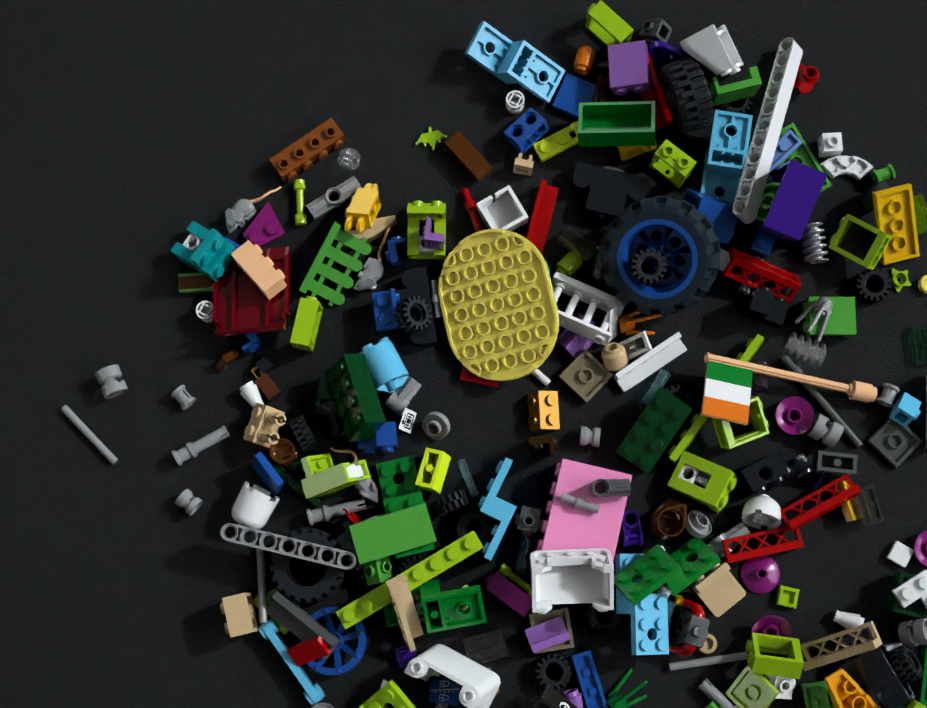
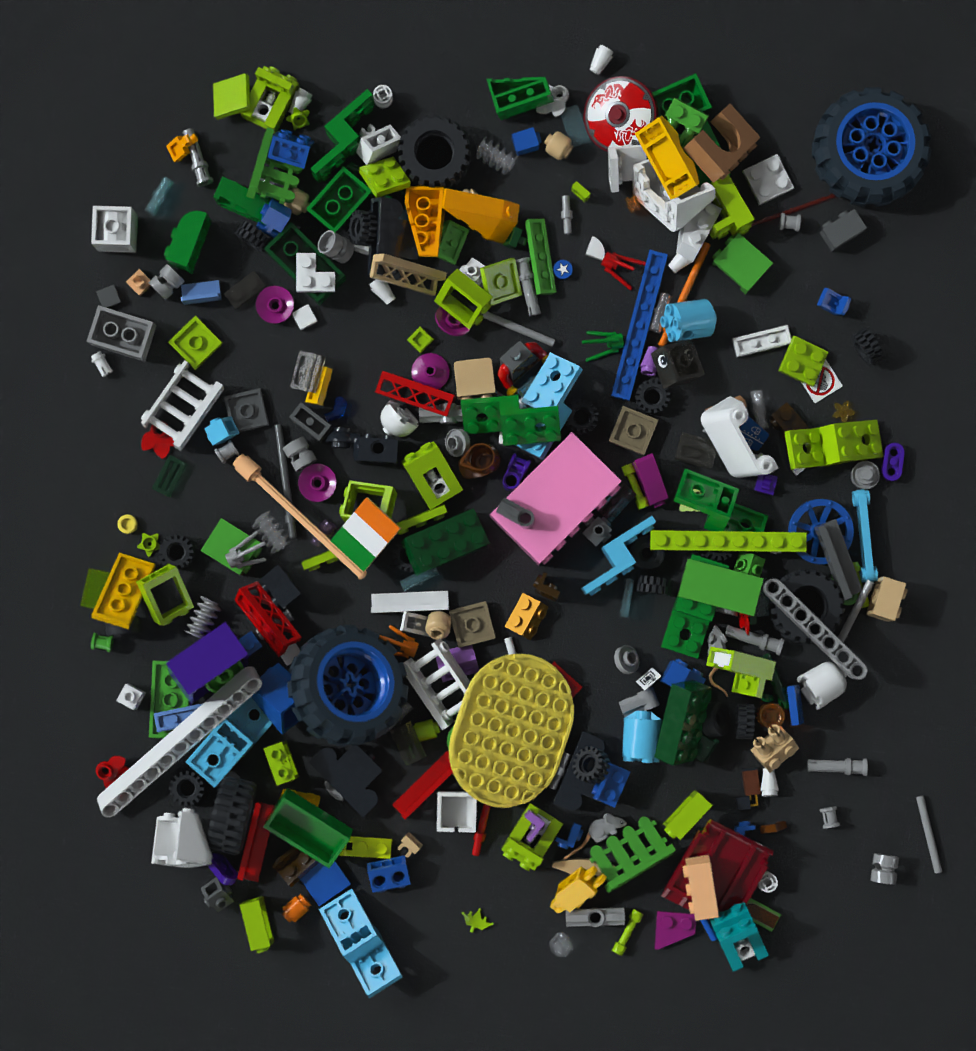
camera: 150 degrees left, 5 degrees up
(188, 502) = (875, 722): light grey wheel -> none
(242, 211) = (683, 955): light grey animal -> none
(307, 150) = (593, 975): dark orange brick -> none
(308, 651) = (846, 534): red tile -> none
(404, 609) = (747, 519): tan fence -> none
(433, 470) = (652, 622): neon yellow brick -> none
(467, 156) = (454, 883): reddish brown beam -> none
(515, 106) = (380, 905): white wheel -> none
(547, 634) = (639, 428): medium lavender panel -> none
(572, 578) = (594, 460): white windscreen -> none
(579, 503) = (549, 517): light grey bar -> none
(589, 436) = (501, 571): light grey wheel -> none
(613, 322) = (421, 654): white sticker -> none
(629, 67) = (265, 873): medium lavender brick -> none
(648, 279) = (379, 674): black tyre -> none
(709, 645) = (509, 341): tan tile -> none
(735, 91) = (169, 788): bright green panel -> none
(823, 507) = (346, 391): red fence -> none
(846, 165) = (127, 671): white tile -> none

